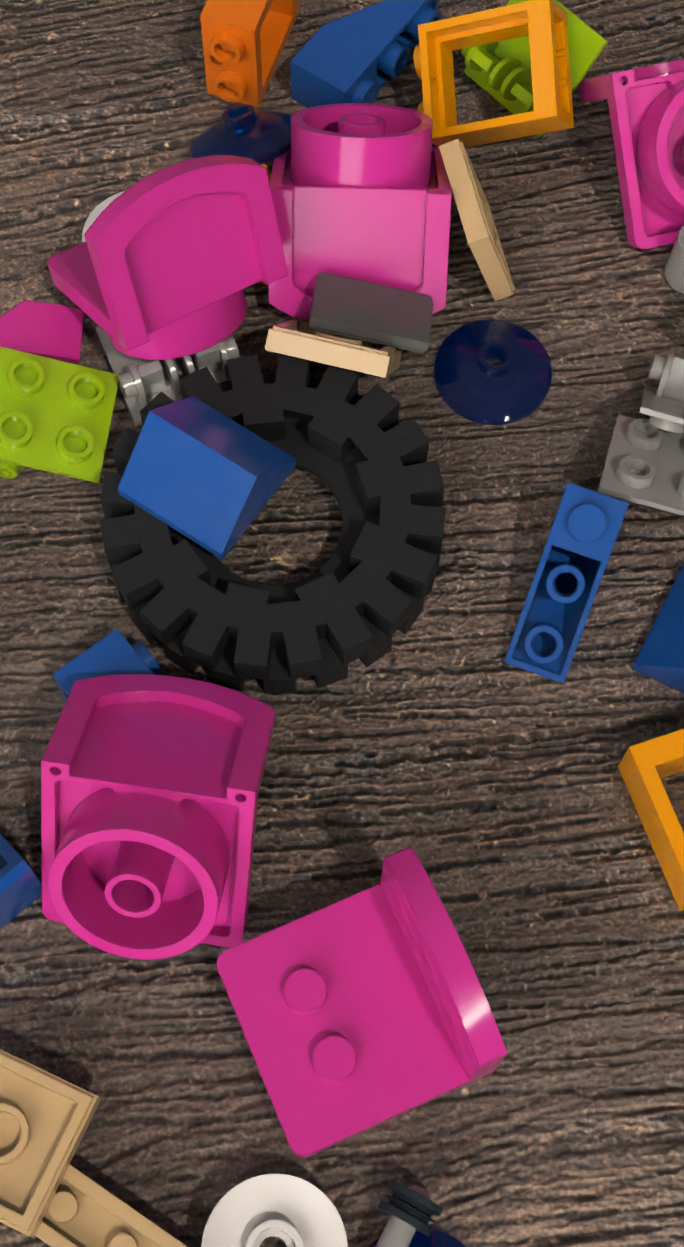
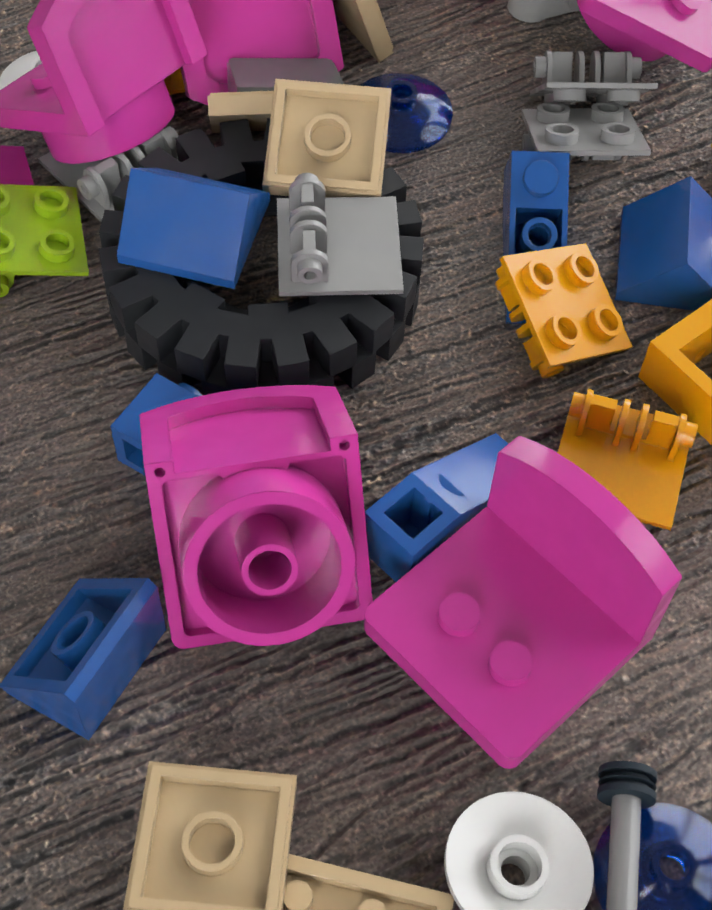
camera: 20 degrees left, 10 degrees down
(341, 543) = (337, 243): none -> light grey hinge
(350, 852) = (430, 506): none -> blue slope
(374, 418) = (330, 133): none -> tan tile
(554, 860) = (630, 453): none -> light orange hinge
(563, 671) = (562, 306): none -> light orange hinge

